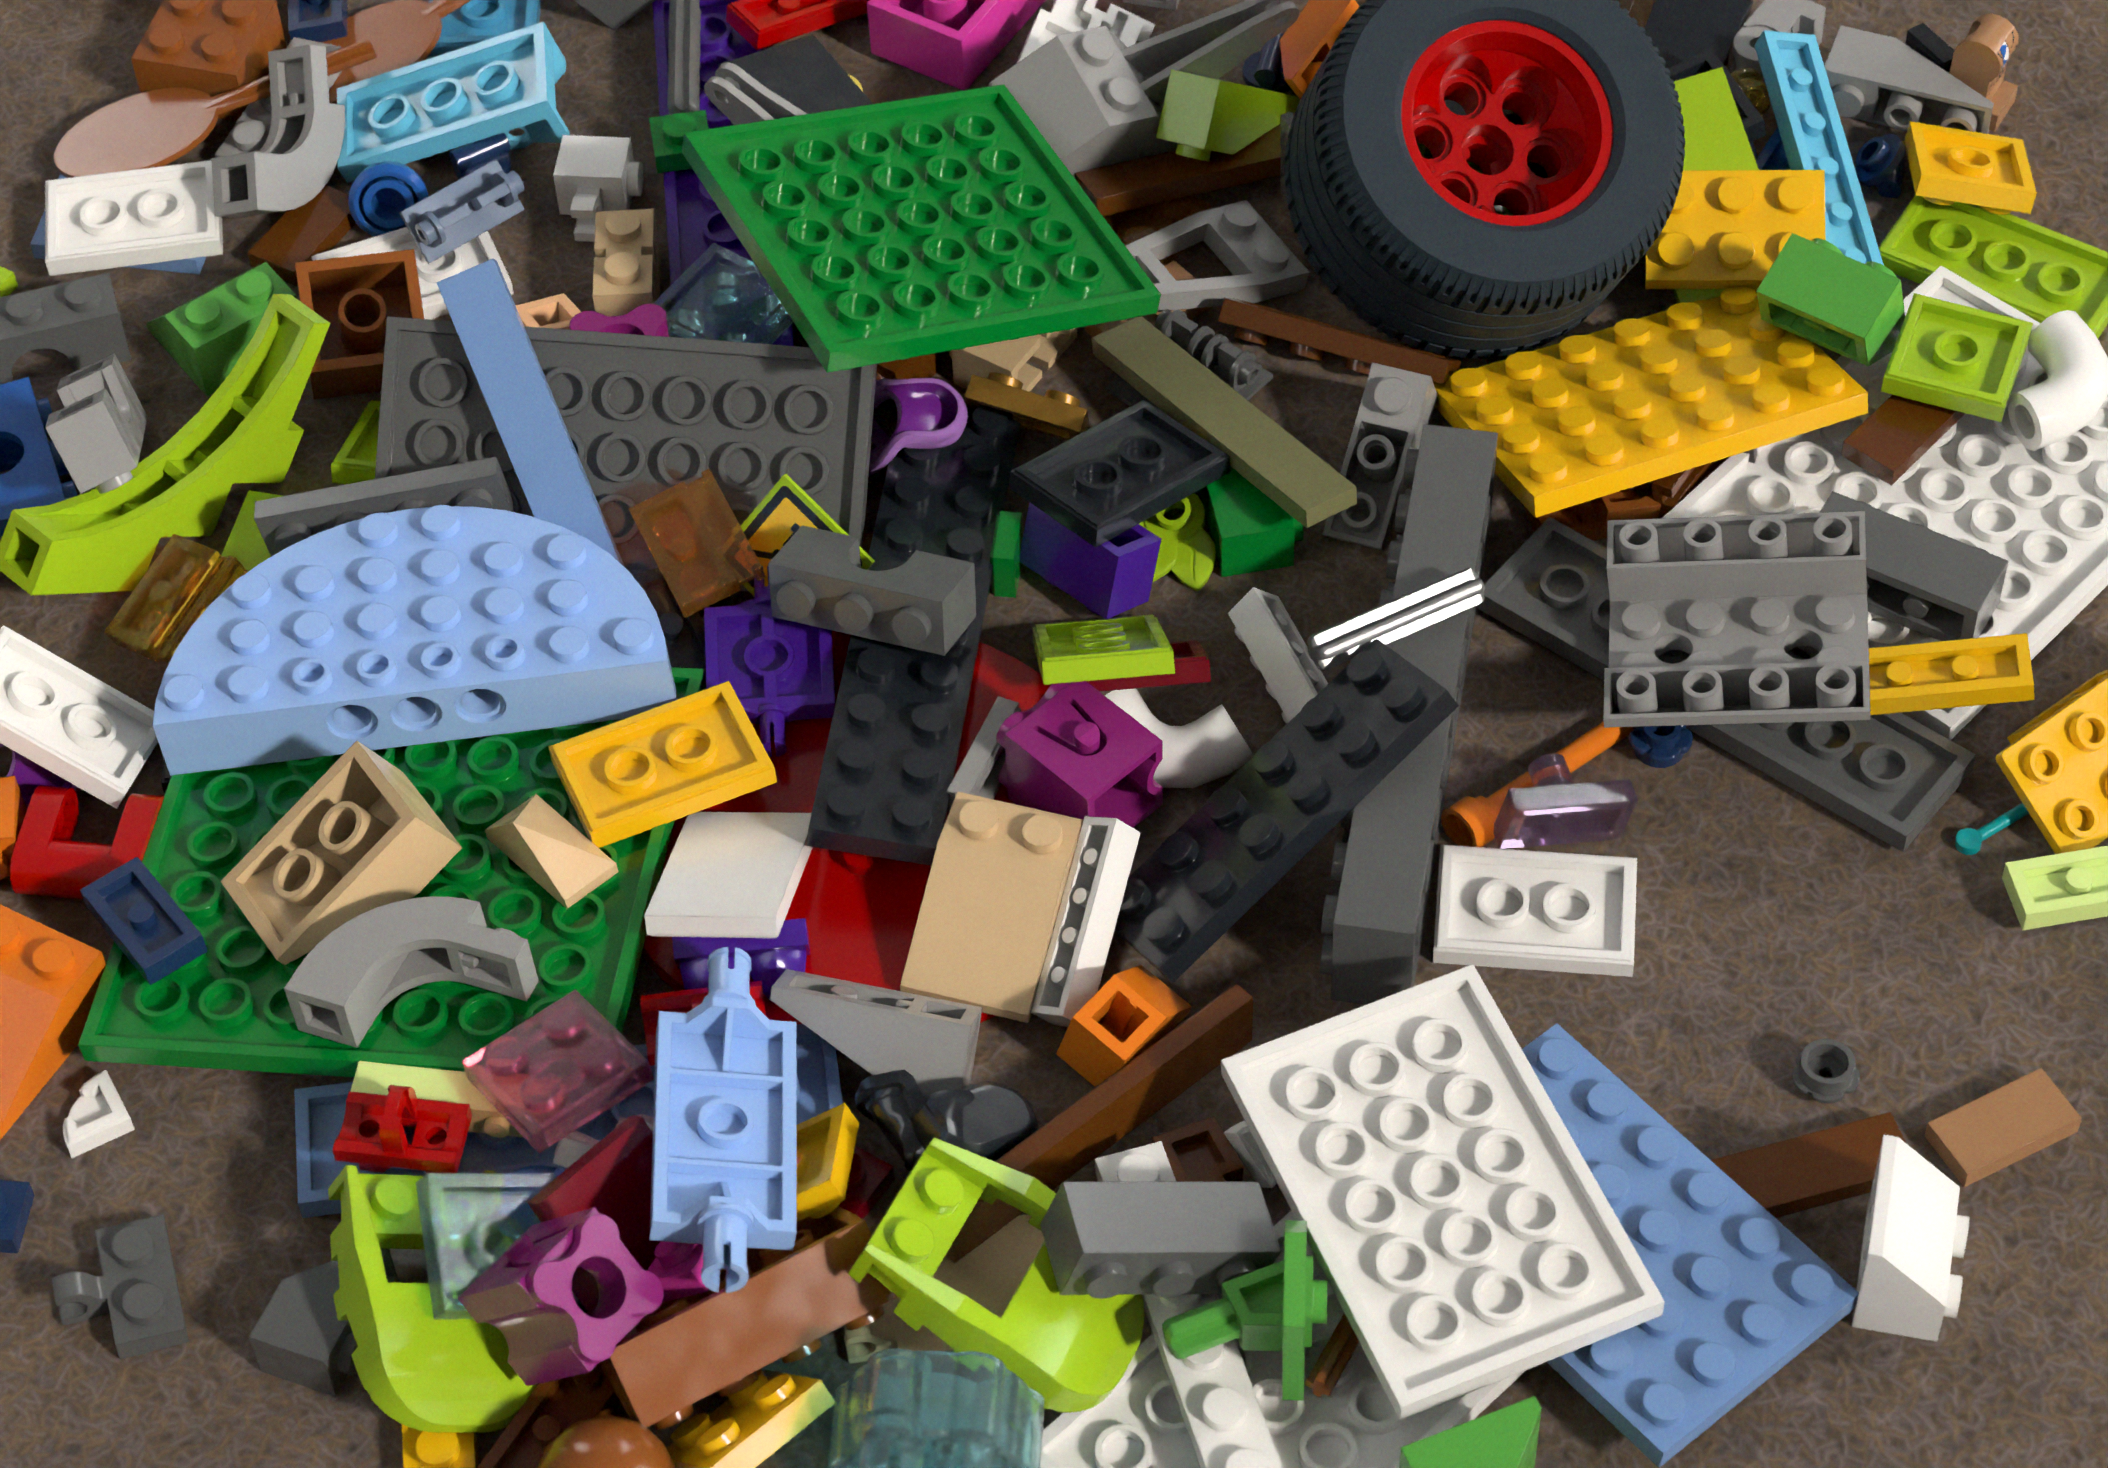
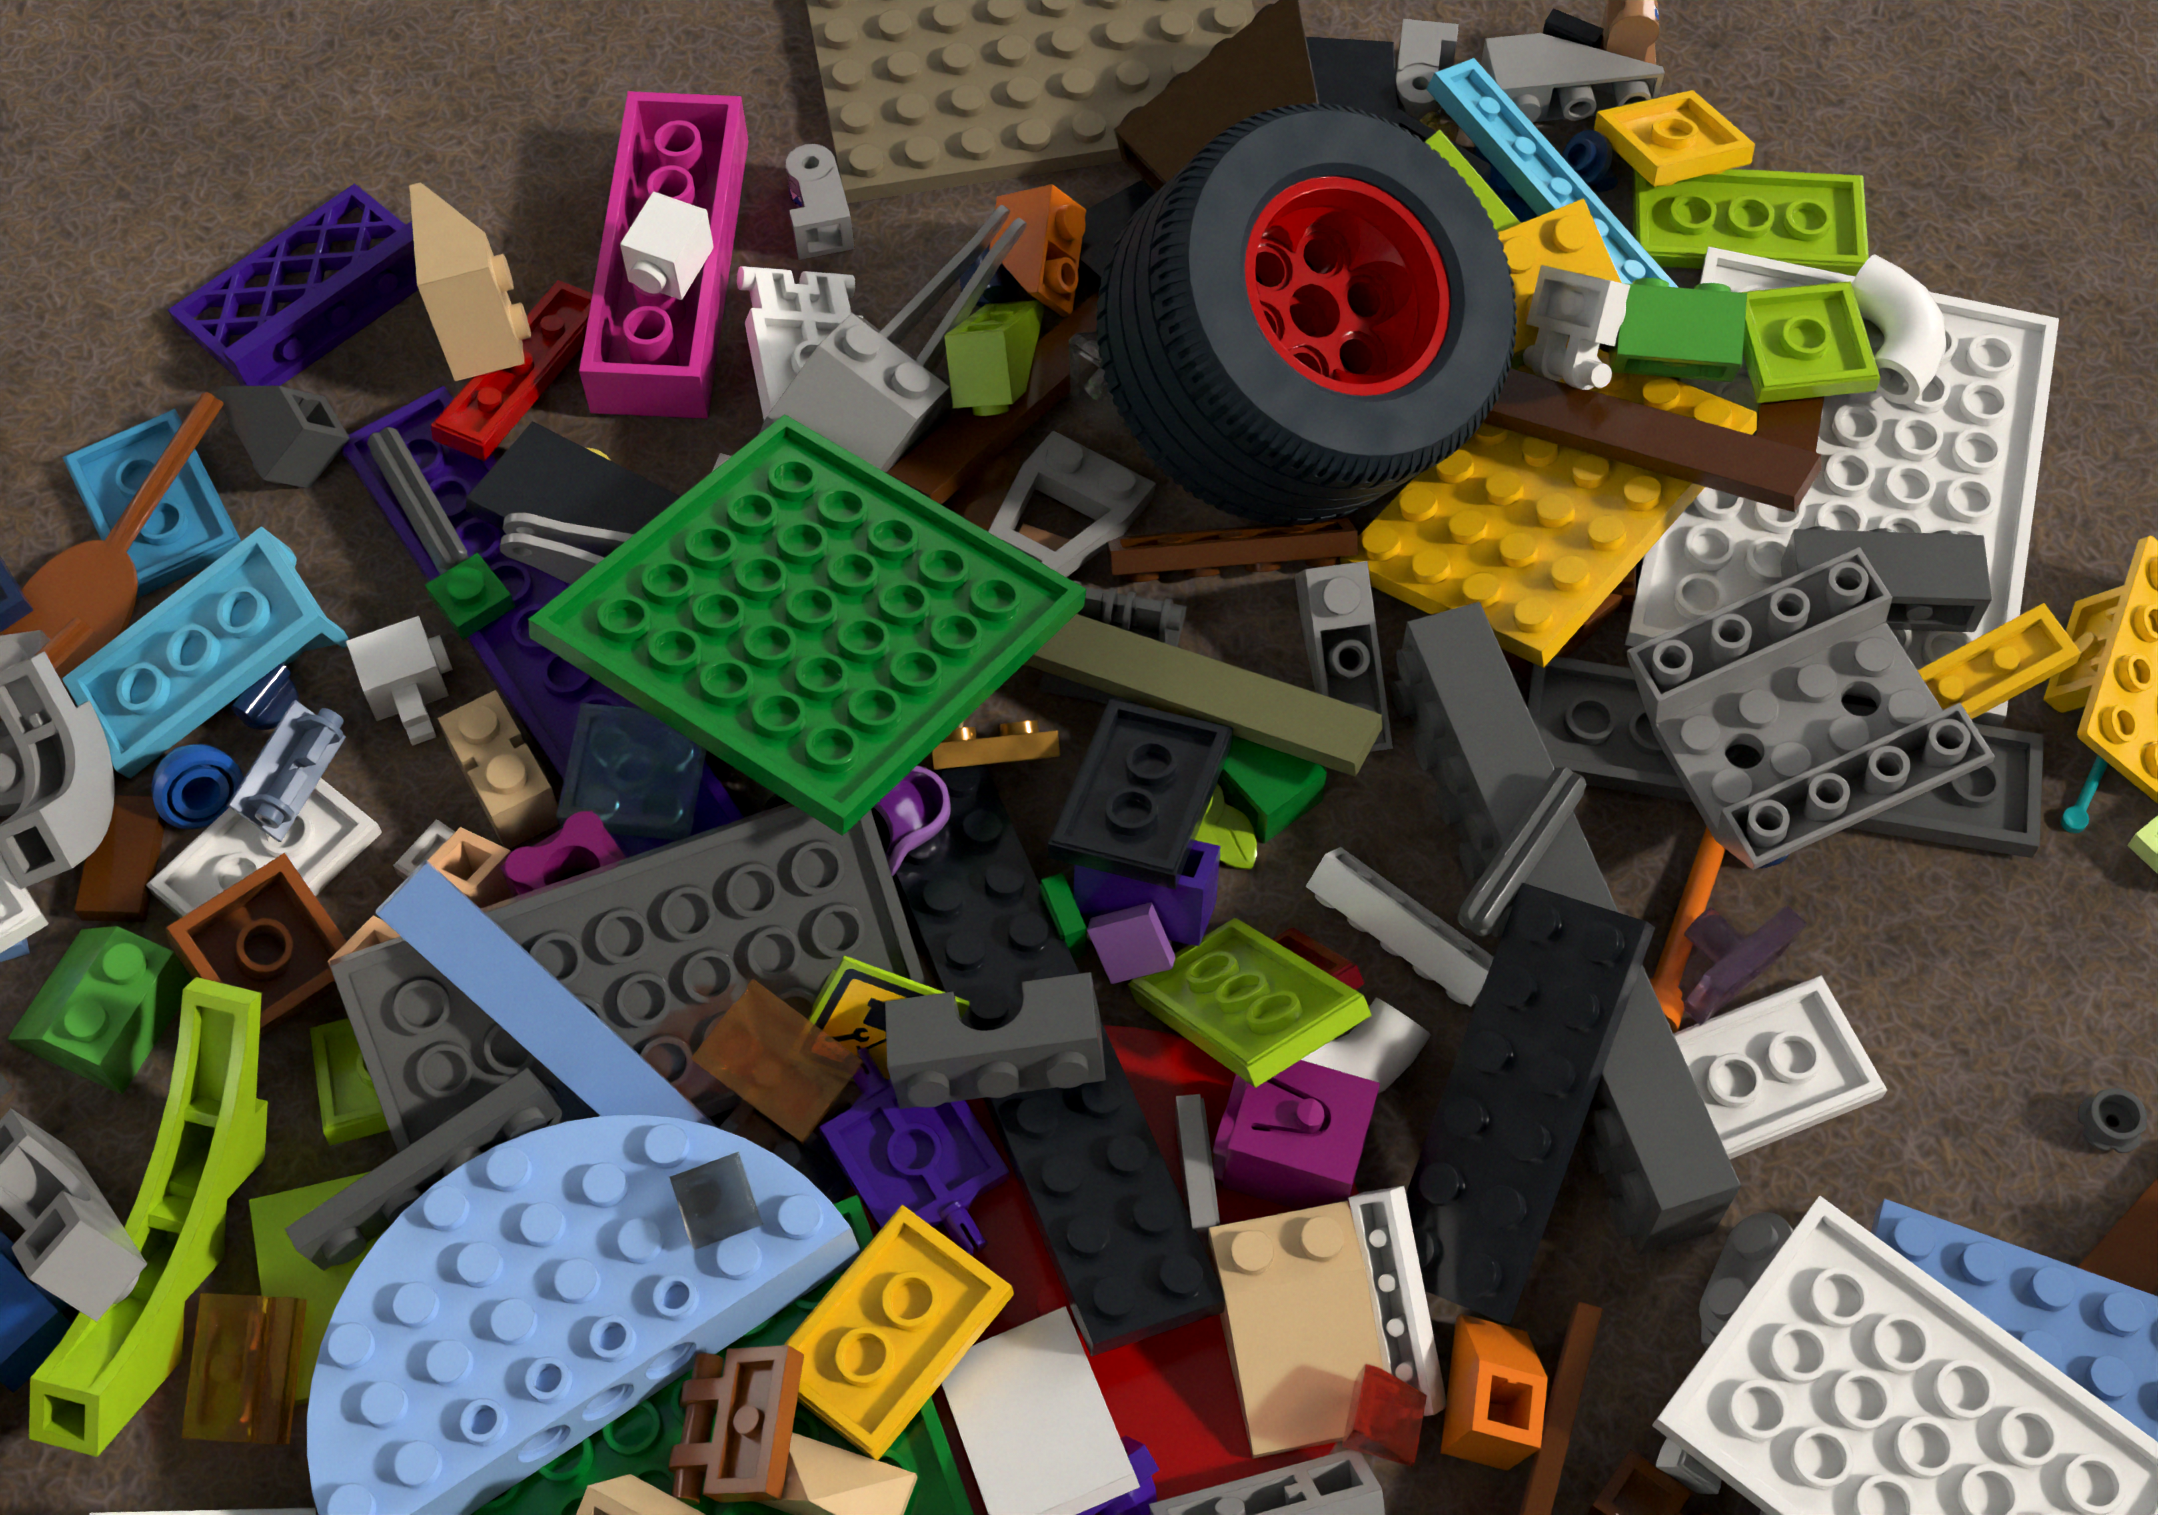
camera: 30 degrees left, 10 degrees up
(502, 767) = (751, 1426): none -> dark orange plate
(574, 595) = (716, 1200): none -> clear smoke tile
(1014, 987) = (1384, 1416): none -> clear red slope
(1048, 591) = (1131, 943): none -> medium lavender tile
(1742, 249) = (1578, 307): none -> white plate
(1742, 369) = (1656, 440): none -> reddish brown tile

